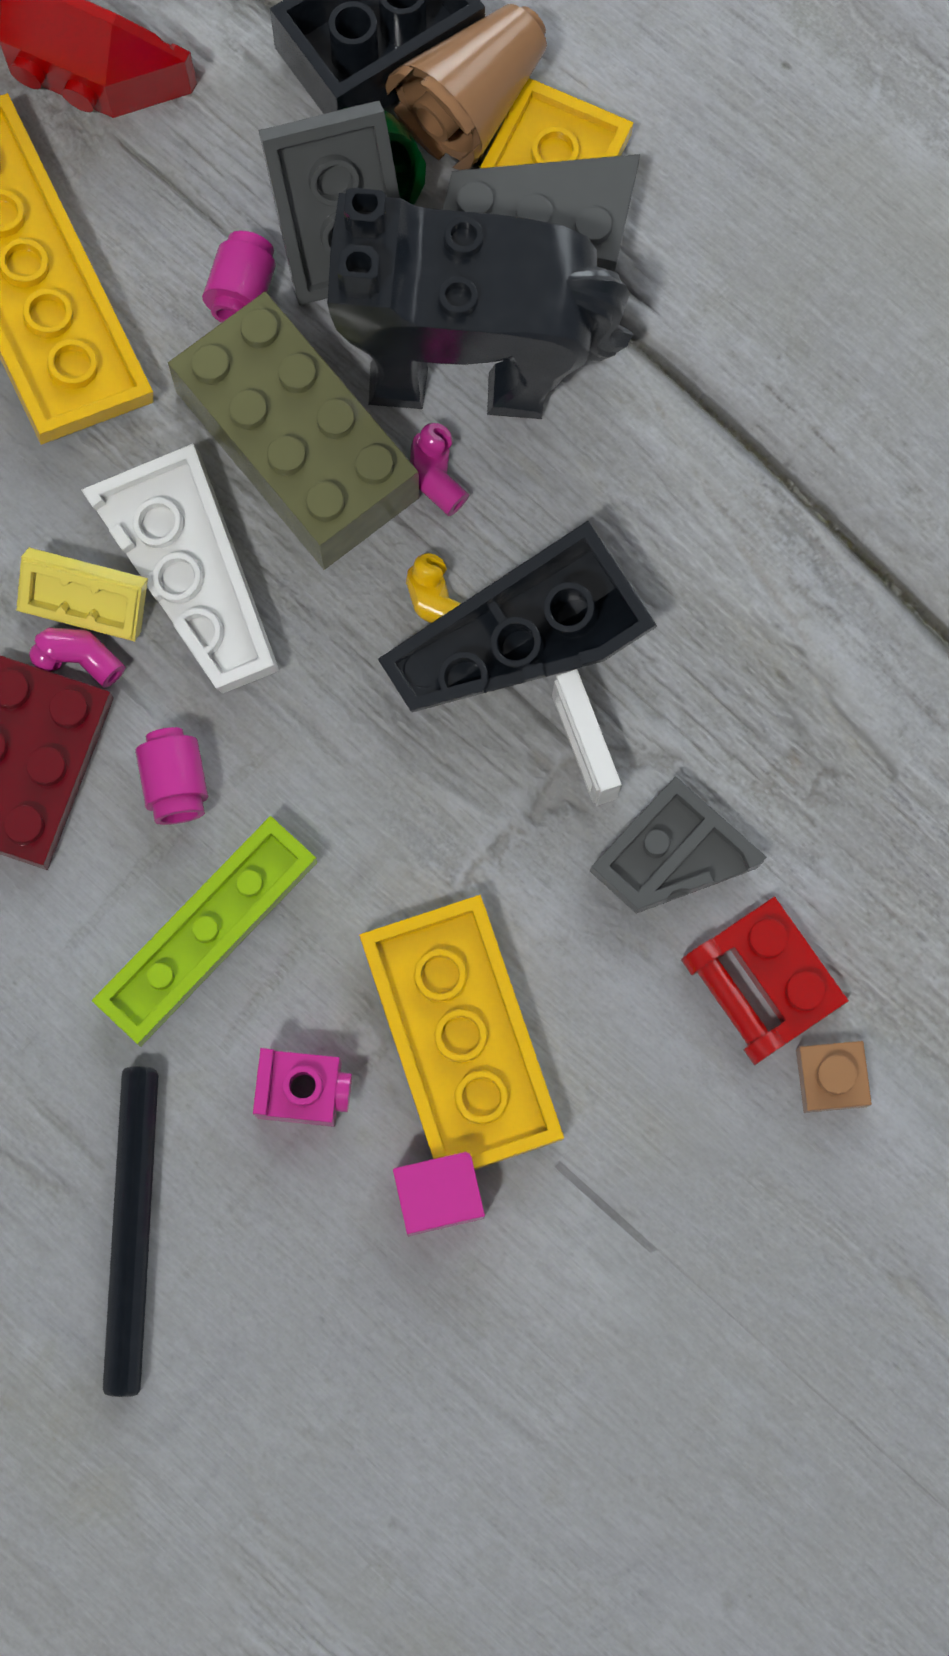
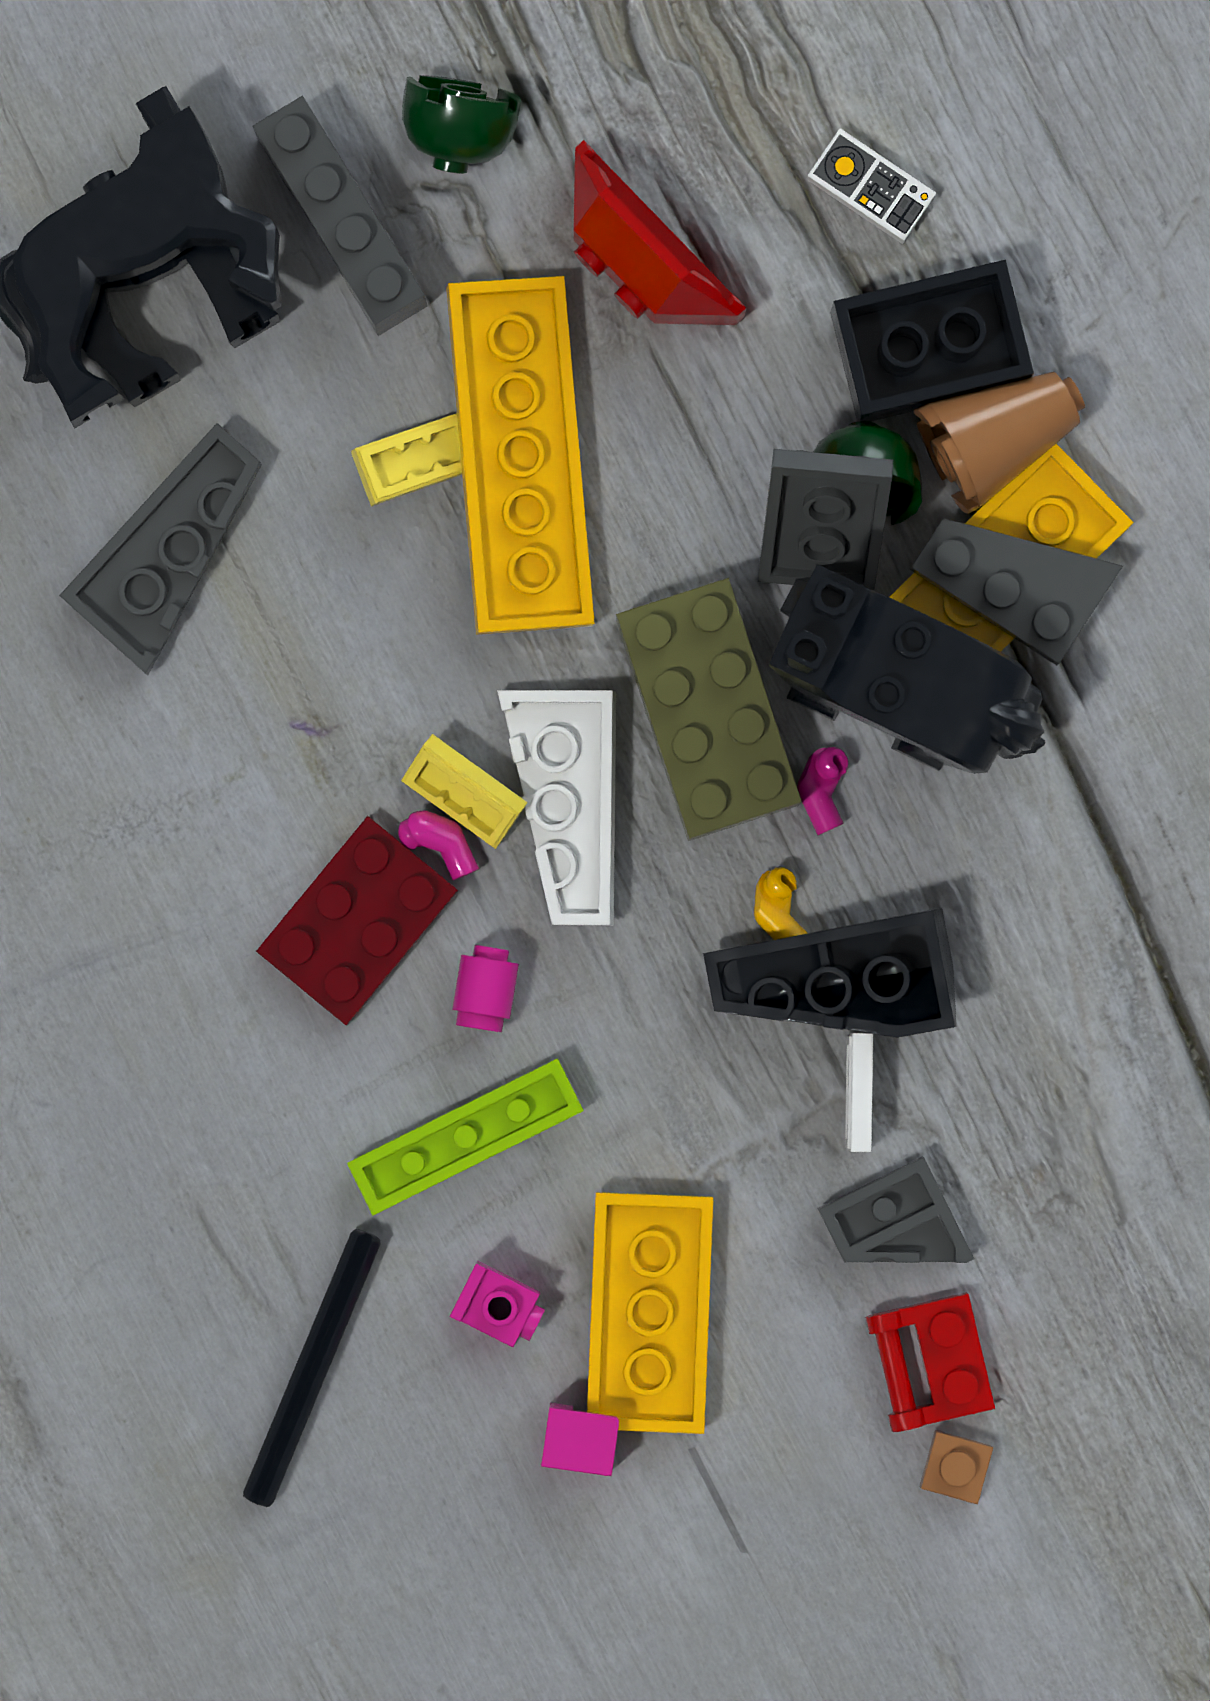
camera: 25 degrees right, 10 degrees up
(238, 273) = (712, 540): dark pink brick -> none

